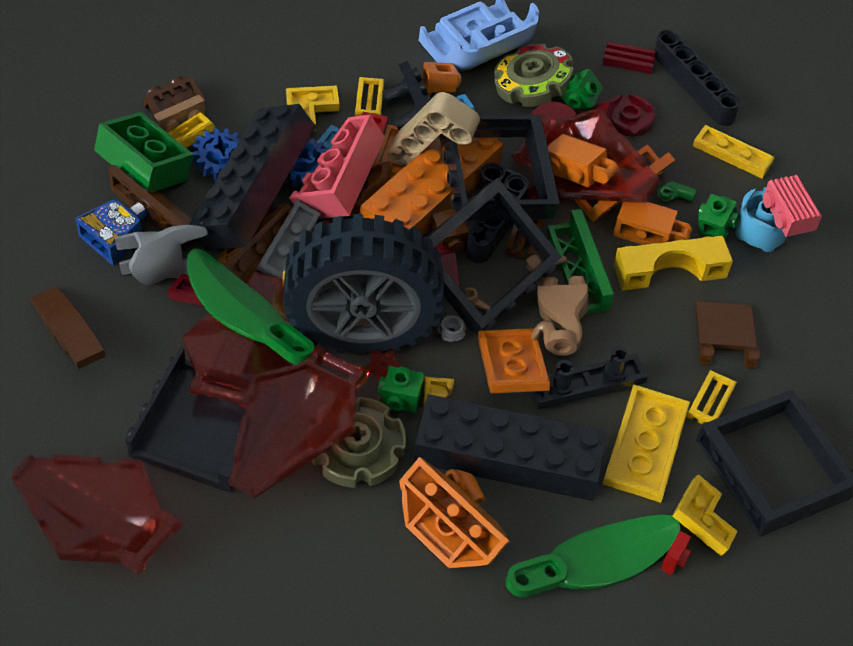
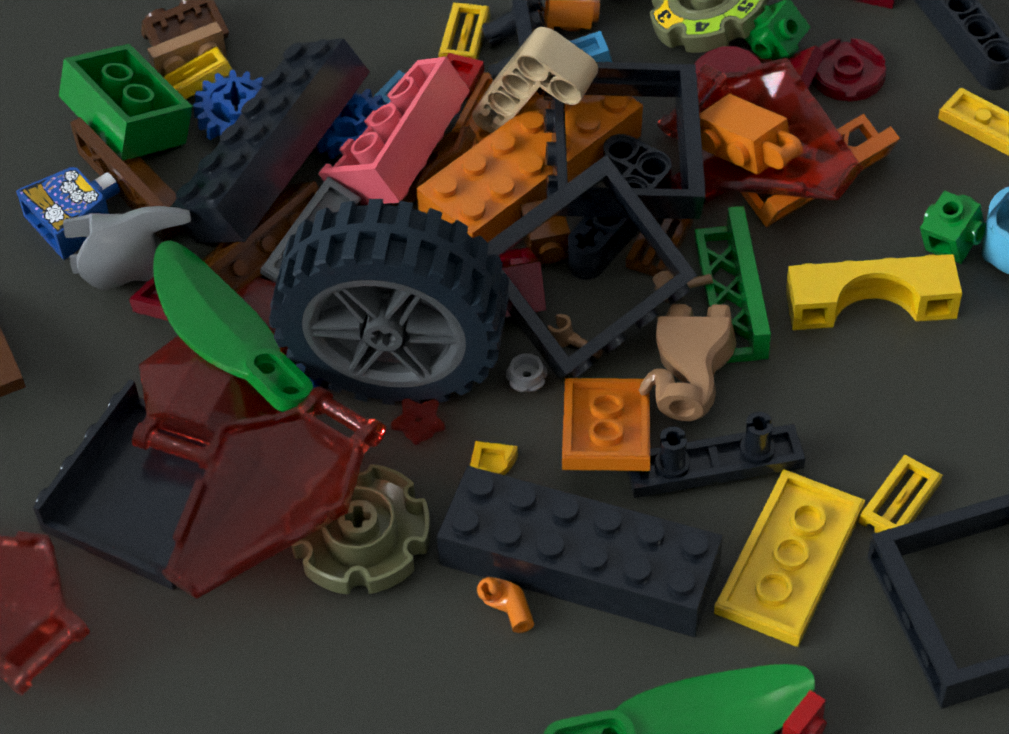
camera: 15 degrees right, 0 degrees up
(314, 99) = (380, 33): yellow plate -> none
(401, 389) = (435, 457): green brick -> none
(449, 519) = (471, 646): orange wedge -> none
(650, 224) = (847, 231): orange brick -> none
(676, 190) = (897, 184): green arm -> none
(697, 515) = (846, 672): yellow plate -> none
(728, 328) = (943, 393): reddish brown flag -> none

